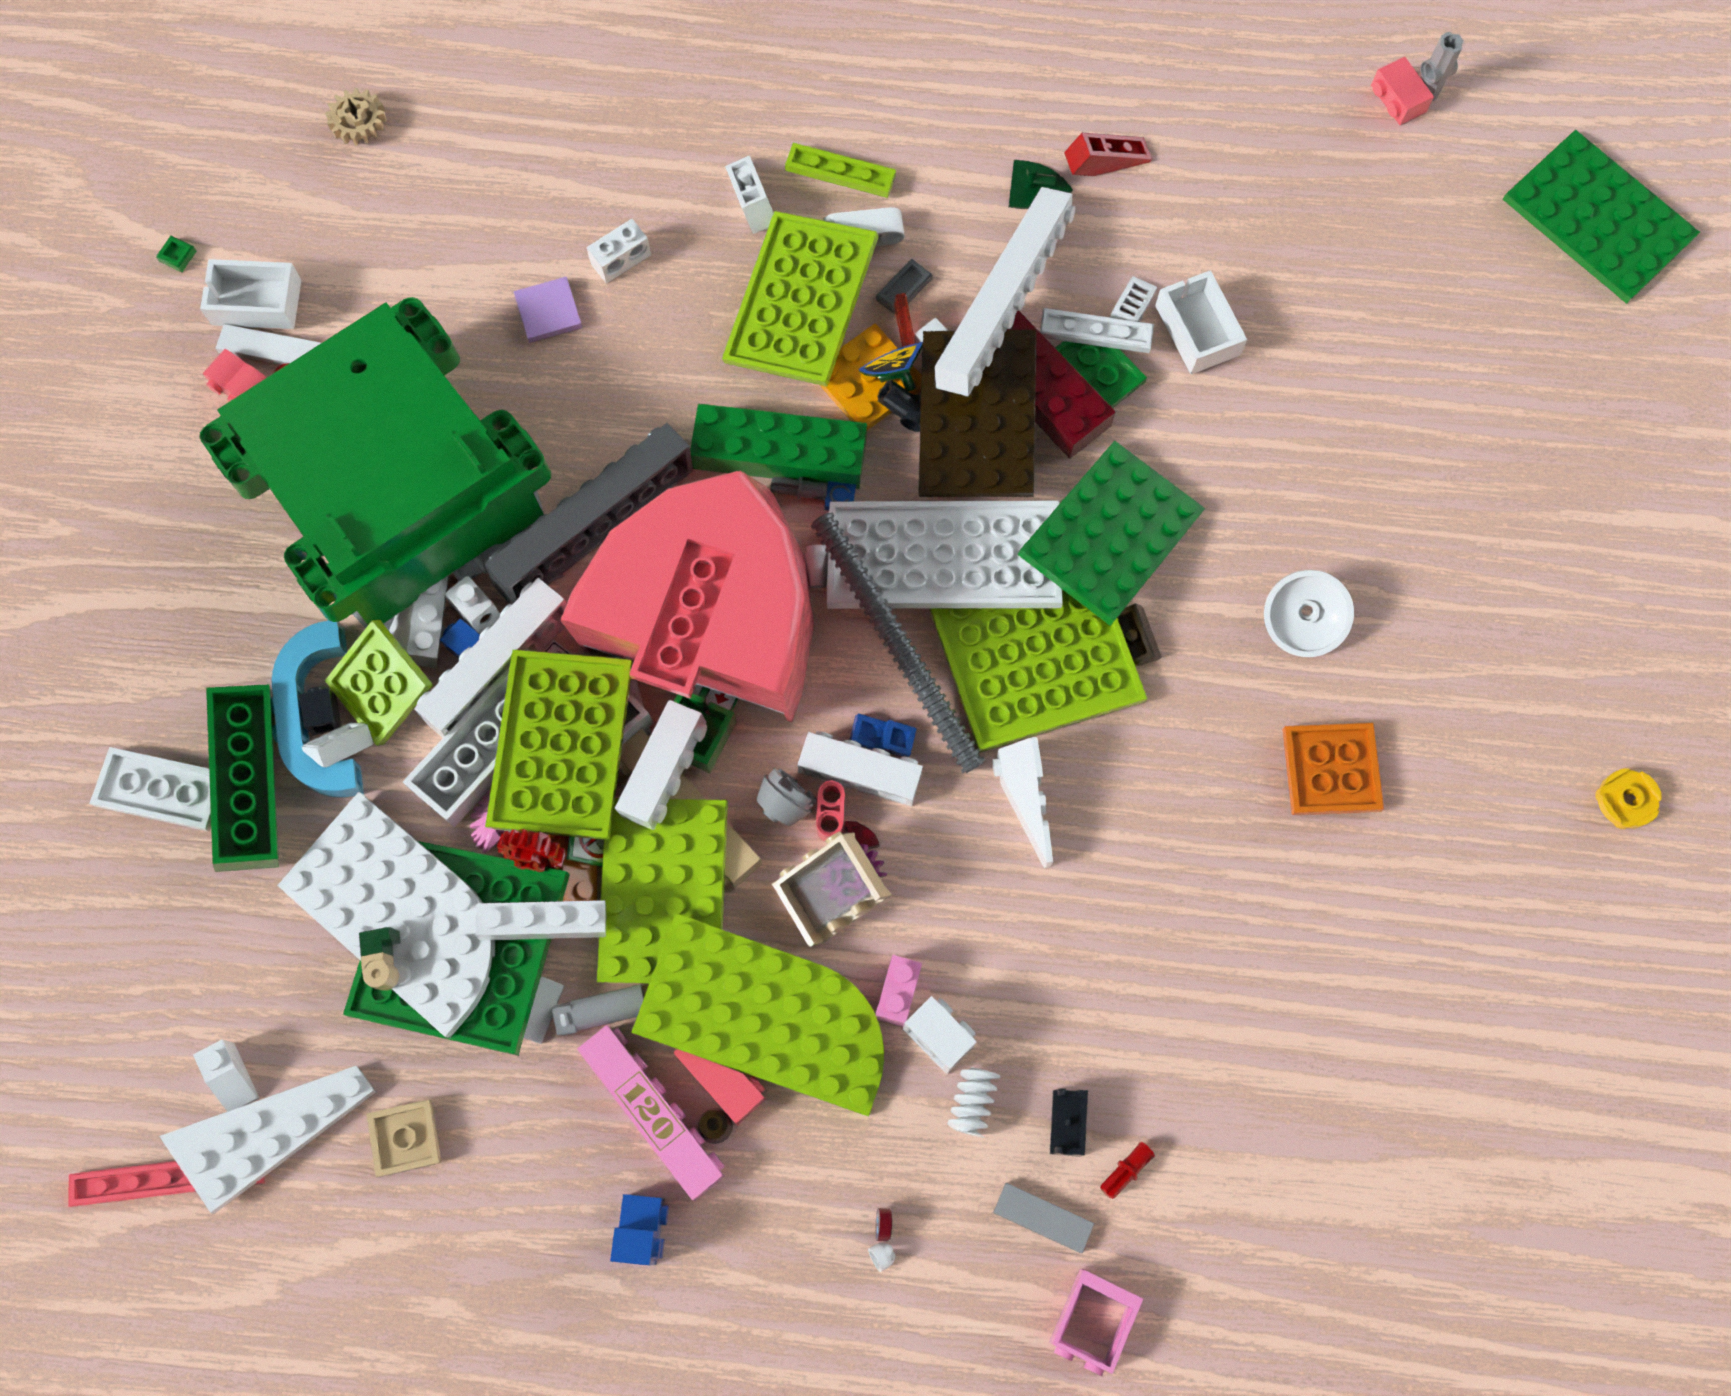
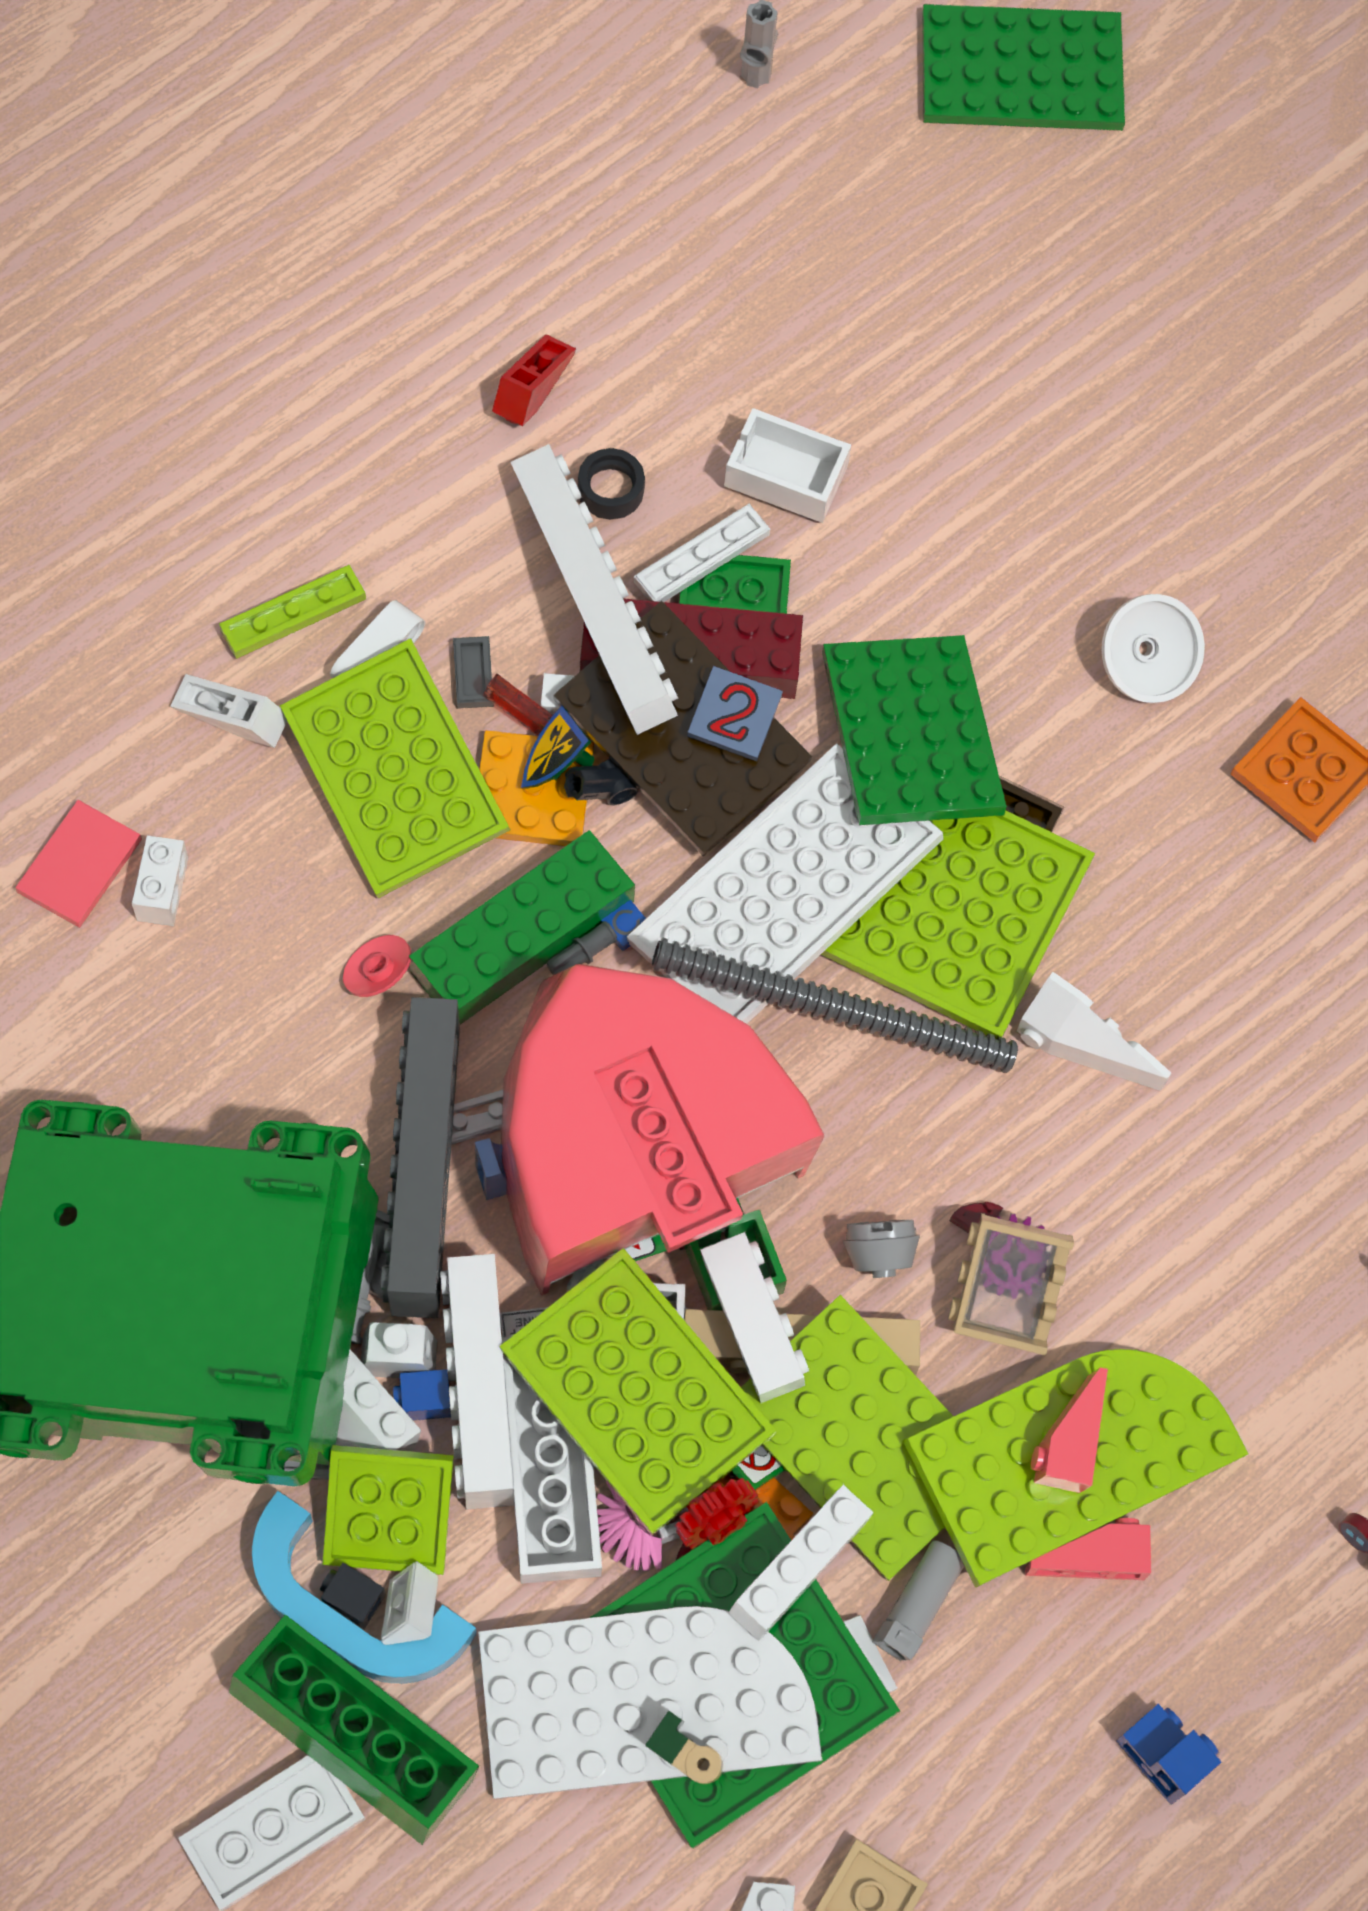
camera: 50 degrees left, 5 degrees down
(547, 309) = (145, 1003): lavender tile -> none
(591, 207) = (78, 863): none -> coral tile
(651, 1113) = (1064, 1642): bright pink brick -> none
(681, 396) = (377, 966): none -> coral dish
(715, 1126) = (1126, 1599): dark brown hat -> none
(759, 1006) = (1070, 1446): none -> coral slope
(830, 811) = (937, 1215): coral beam -> none
(860, 768) = (915, 1155): white brick -> none
(888, 735) = (900, 1108): blue slope -> none
(898, 990) = (1159, 1317): bright pink brick -> none
(940, 1033) = (1238, 1318): white brick -> none
(973, 1101) = (1321, 1349): white piece -> none
(1010, 428) = (735, 713): none -> sand blue tile
(1028, 180) = (488, 467): dark green shield -> none
(1095, 231) = (615, 460): none -> black tyre
(1151, 289) = (694, 513): white slope -> none
(1402, 90) = (738, 92): coral brick -> none

